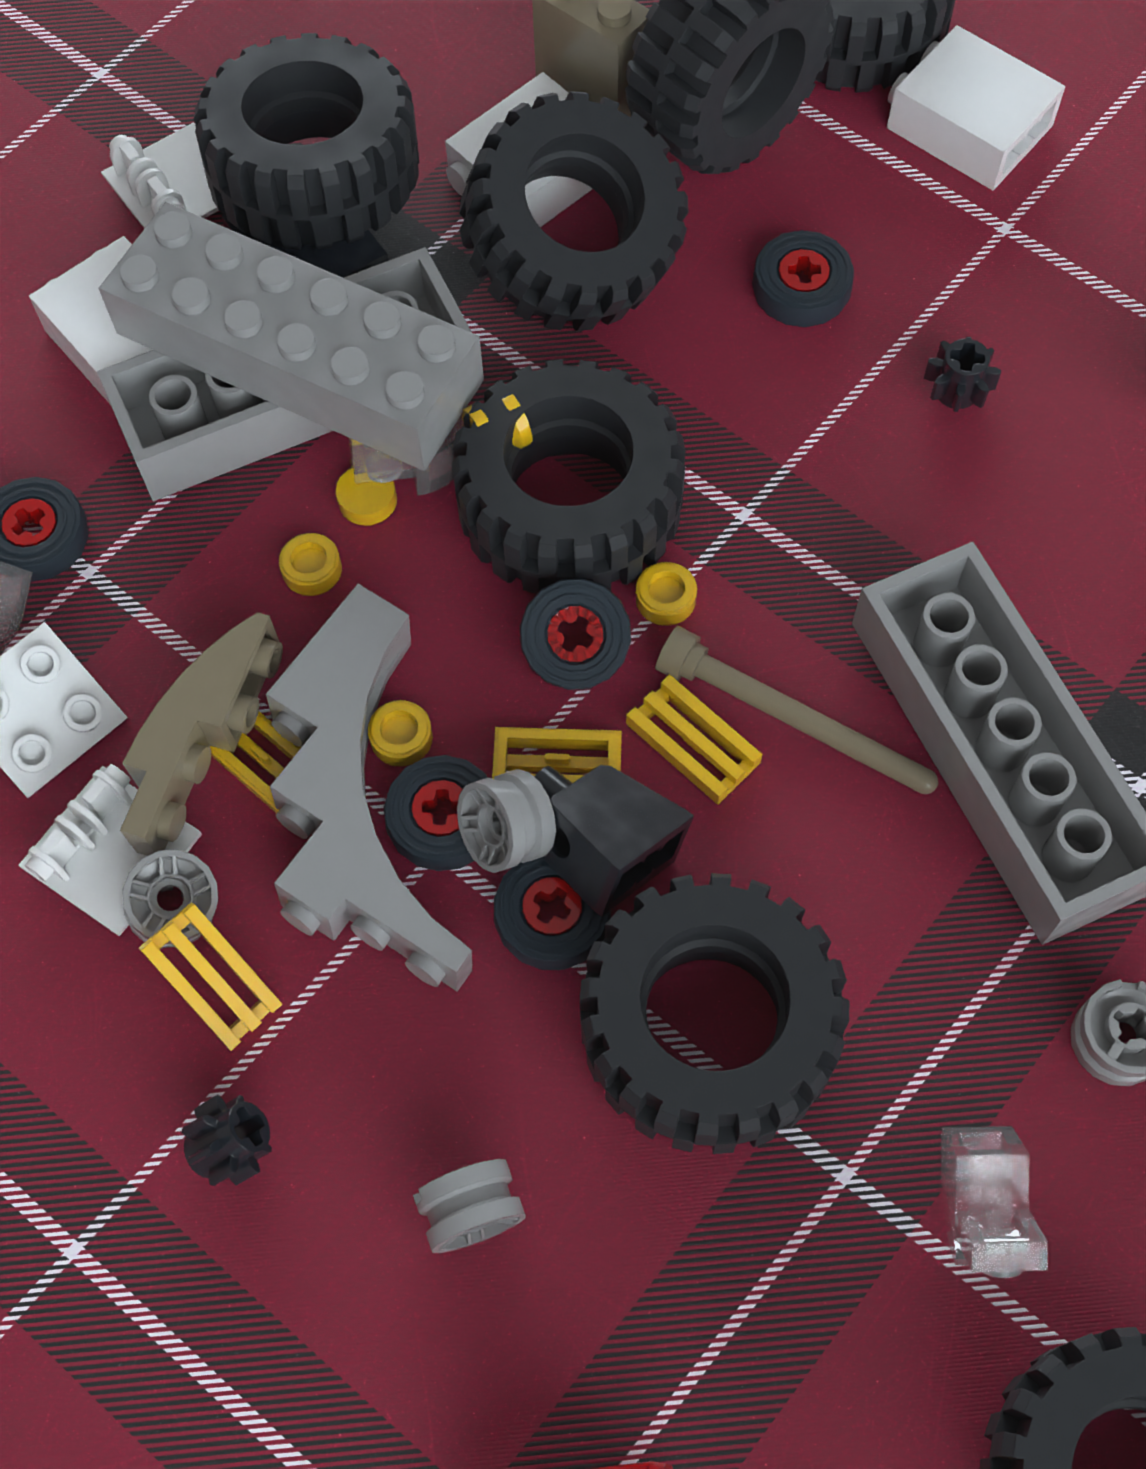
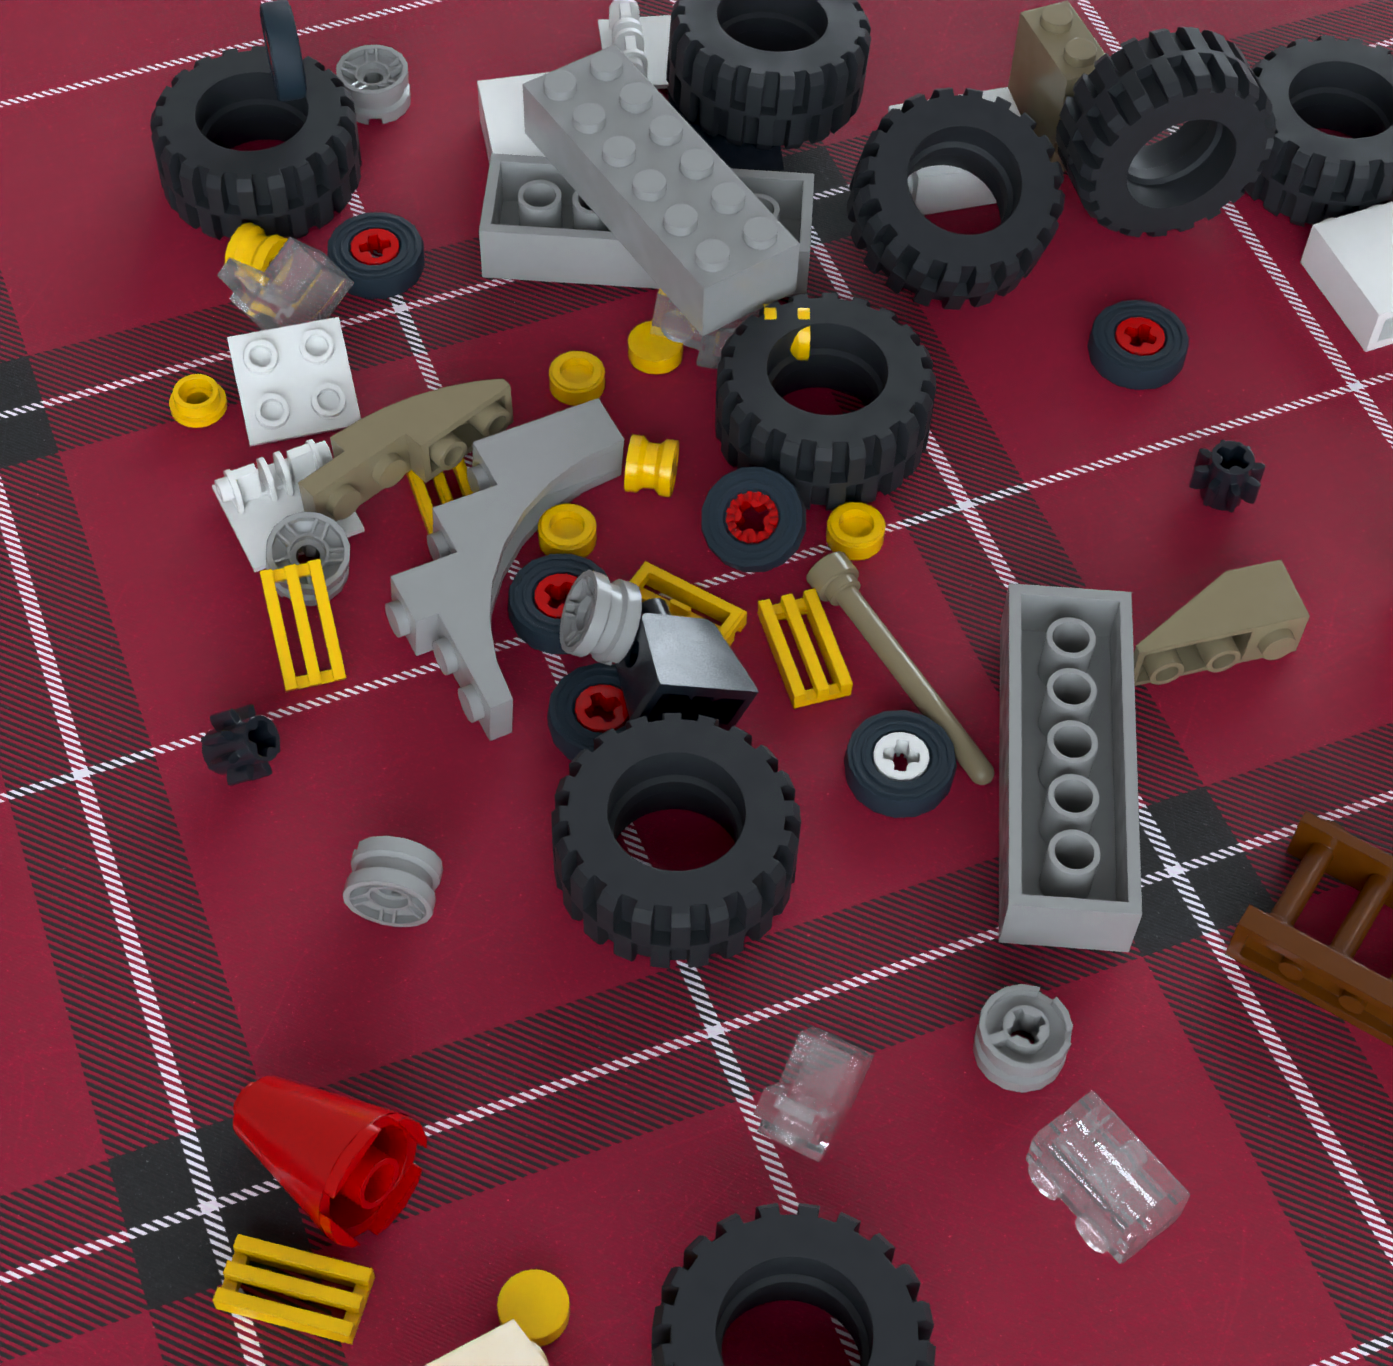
camera: 25 degrees right, 10 degrees down
(443, 624) = (651, 465): none -> yellow wheel
(840, 841) = (895, 792): none -> black bush
(1056, 512) = (1232, 621): none -> dark tan slope

